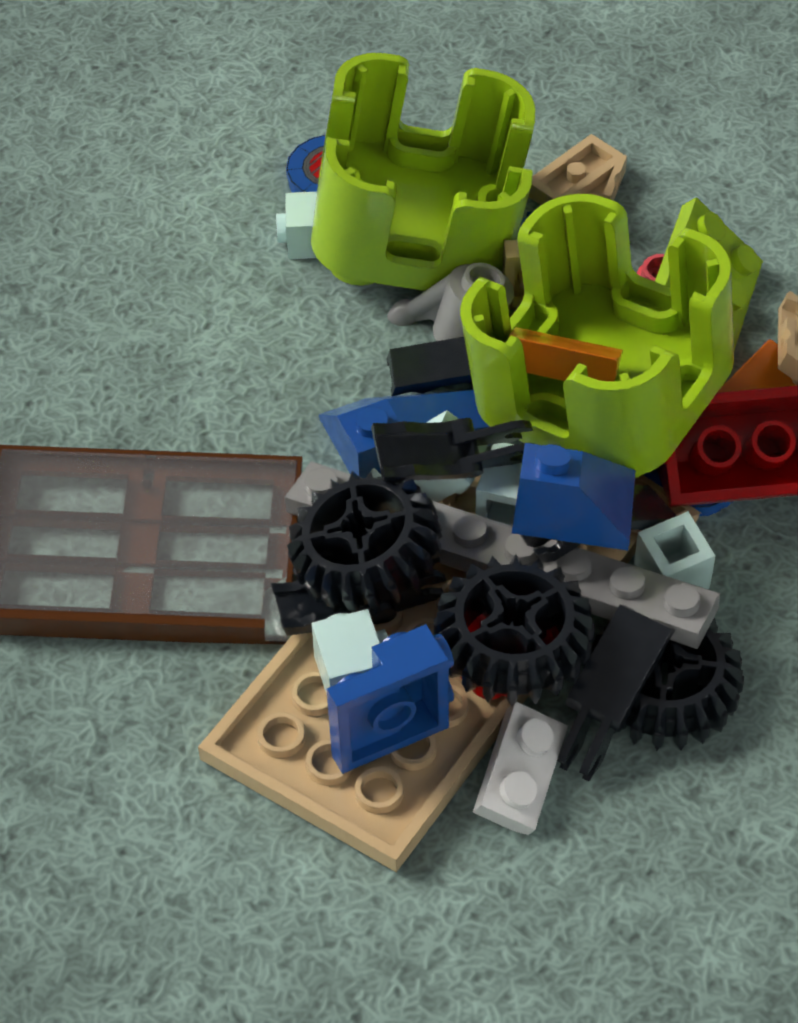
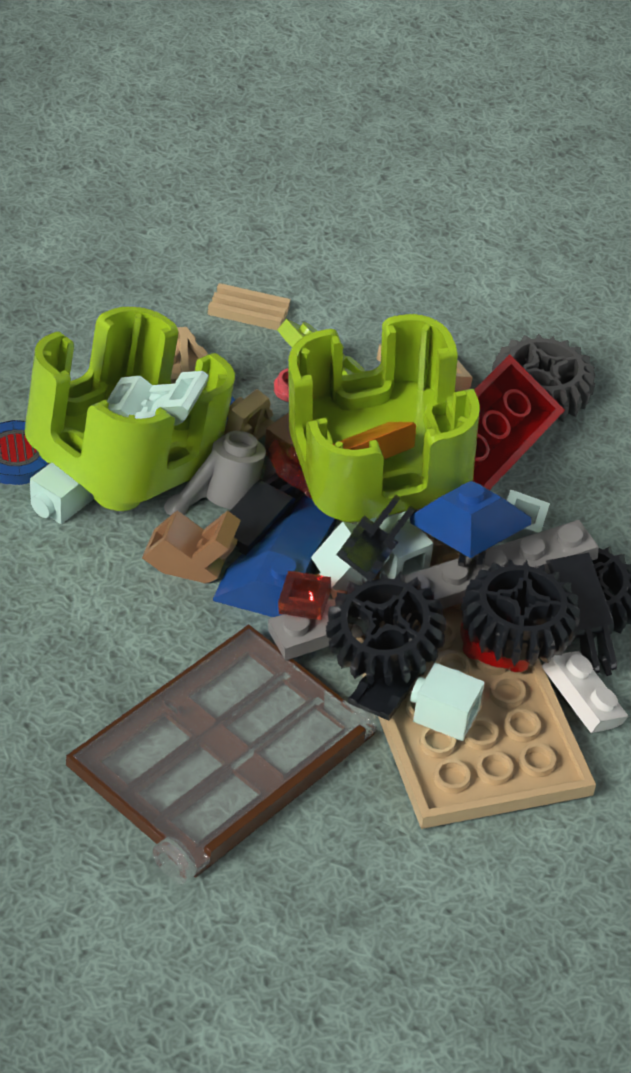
camera: 55 degrees left, 5 degrees down
(342, 453) = (304, 595): none -> clear red plate
(345, 351) = (190, 552): none -> medium nougat brick
(394, 702) = (509, 692): blue plate -> none
(431, 184) = (140, 398): none -> light aqua slope
(741, 171) = (249, 306): none -> tan tile

